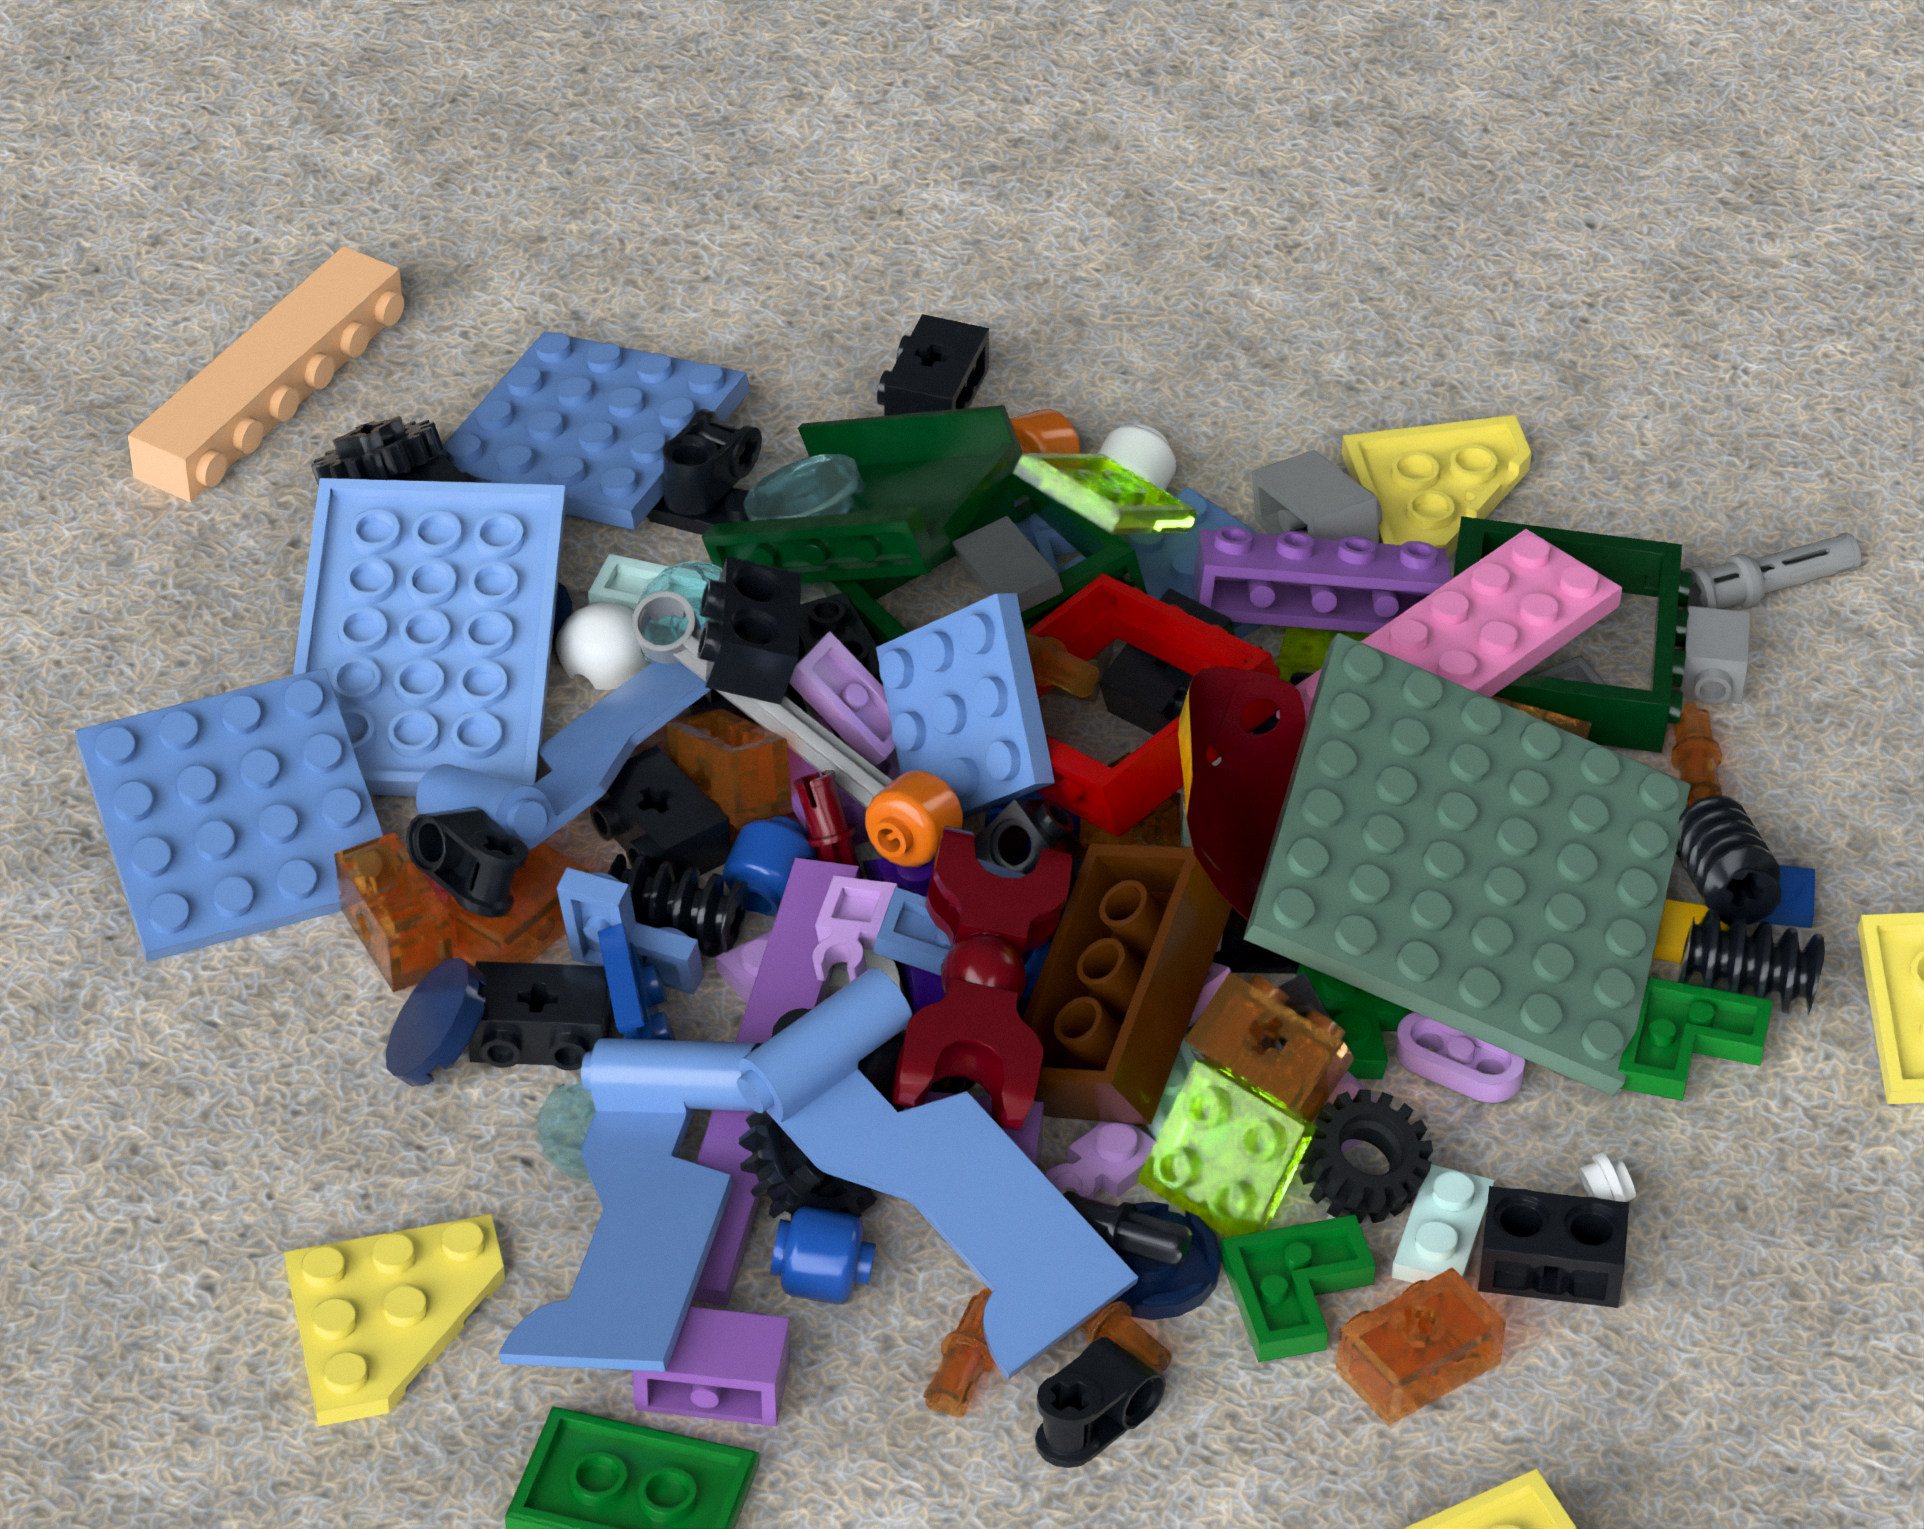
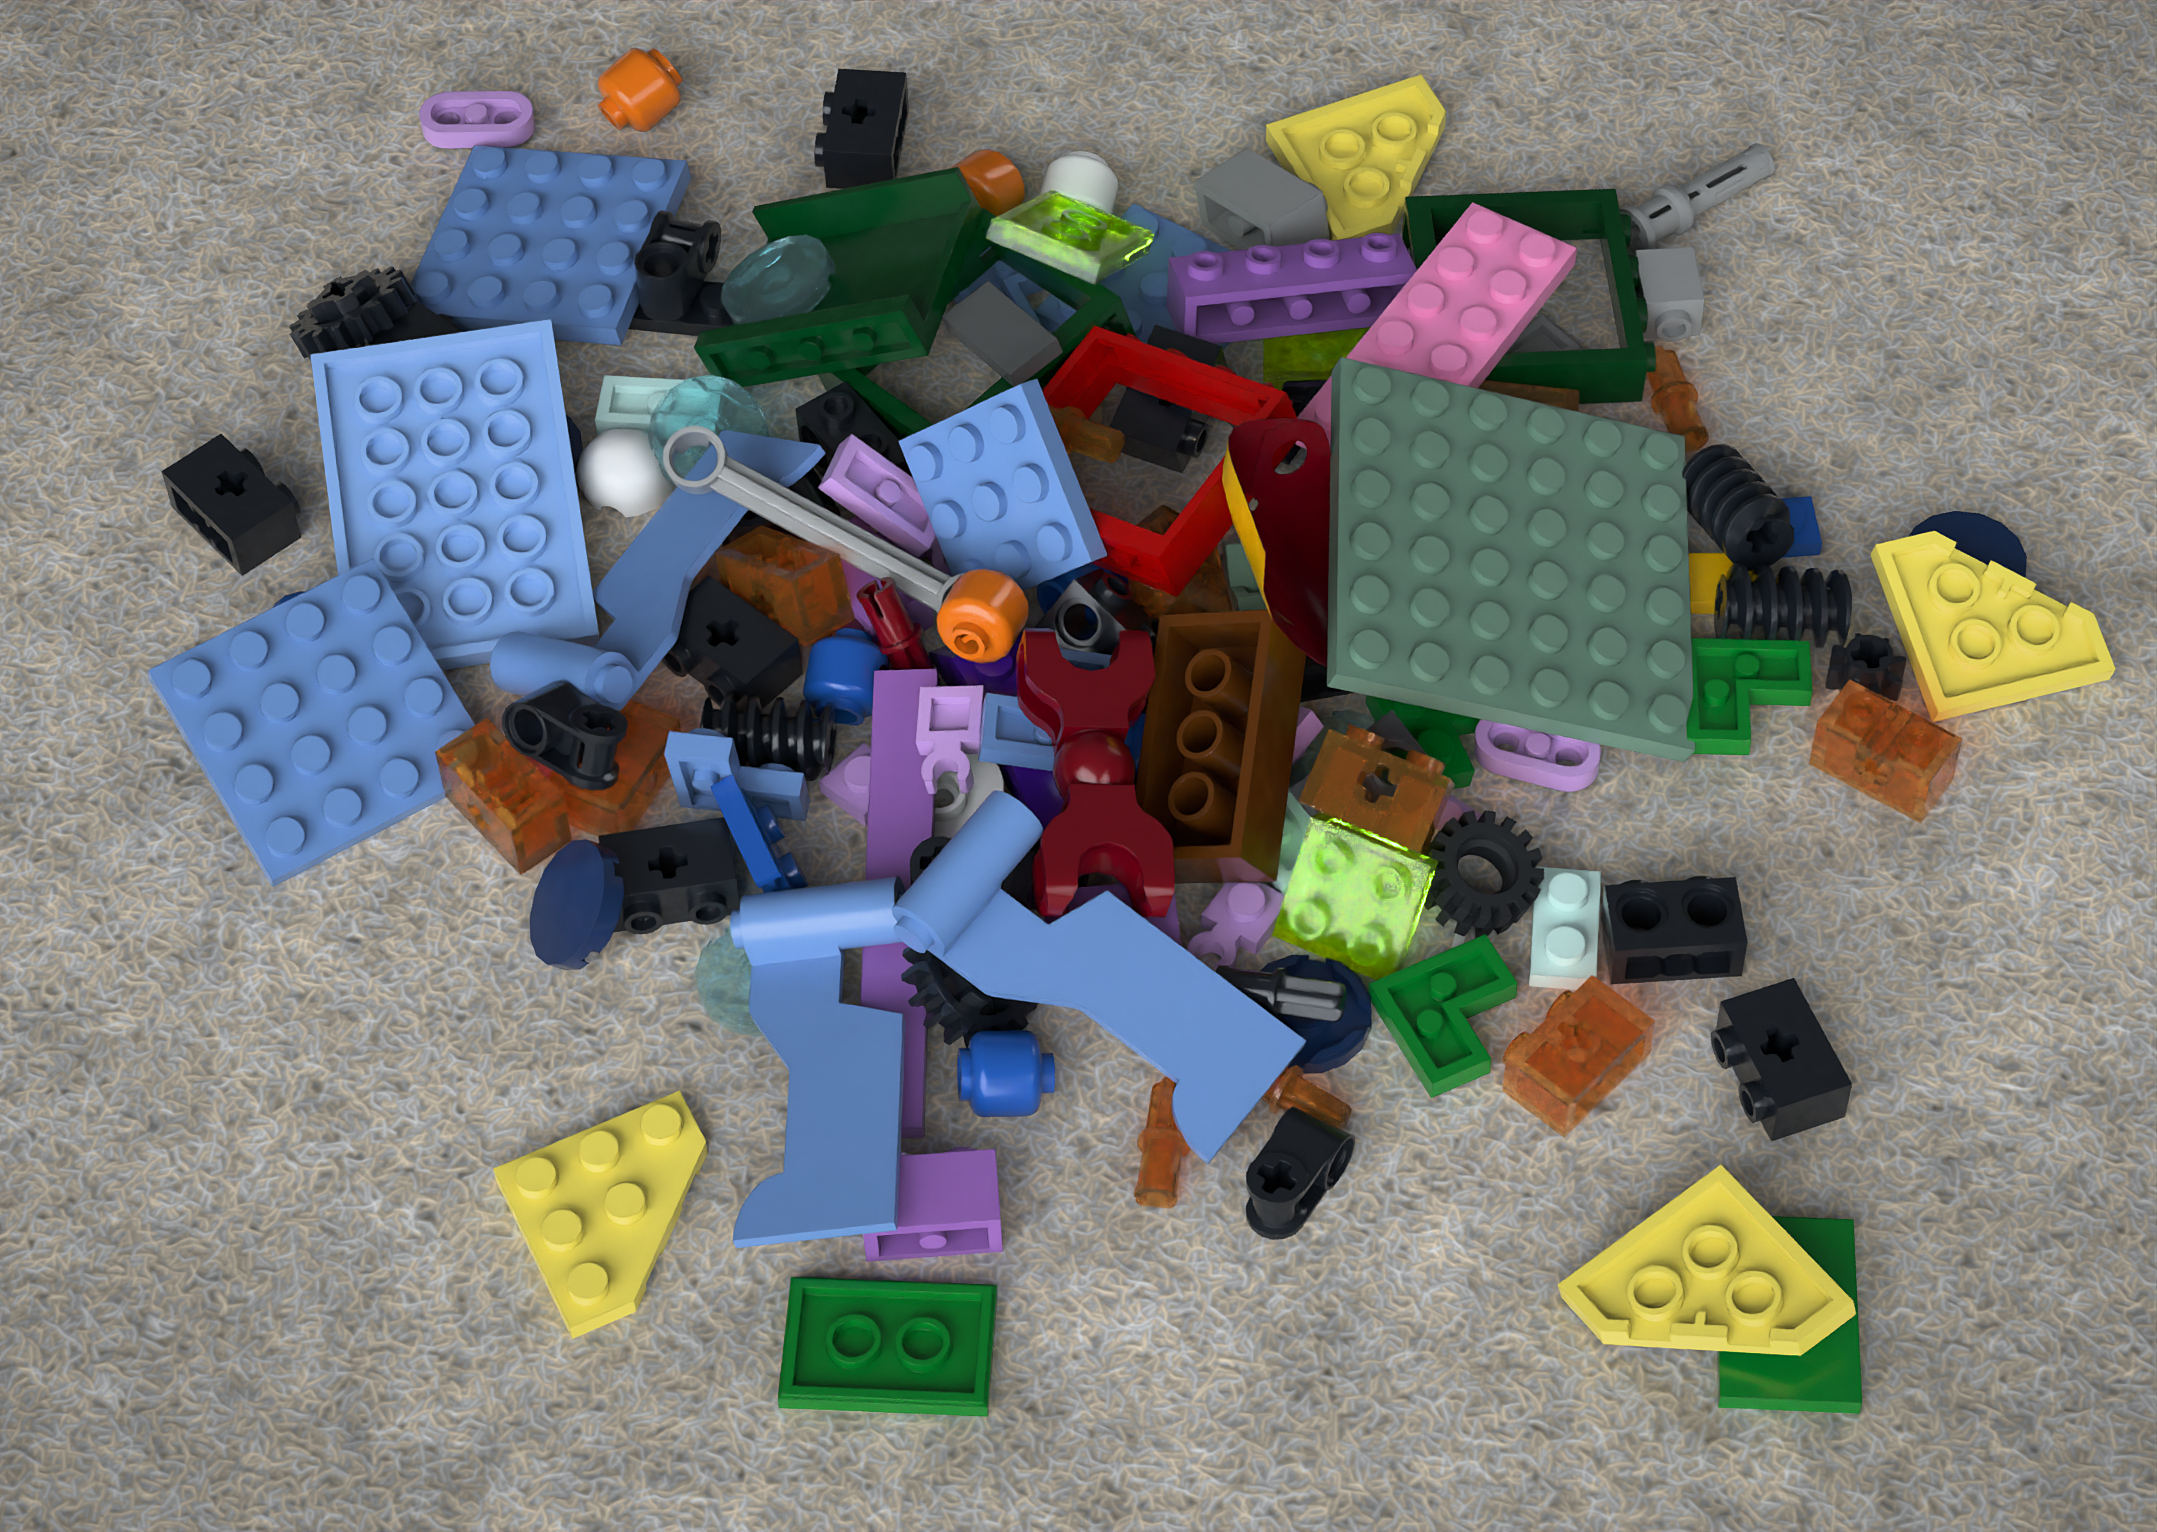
camera: 10 degrees left, 10 degrees up
(211, 608) = (233, 503): none -> black brick
(266, 374) = (217, 241): light nougat brick -> none
(554, 307) = (477, 119): none -> lavender plate
(721, 306) = (639, 89): none -> orange head
(751, 629) = (783, 452): black brick -> none
(1607, 1179) = (1704, 854): white plate -> none
(1632, 1389) = (1781, 1060): none -> black brick
(1824, 1116) = (1885, 751): none -> clear orange brick
(1825, 1040) = (1869, 663): none -> black gear

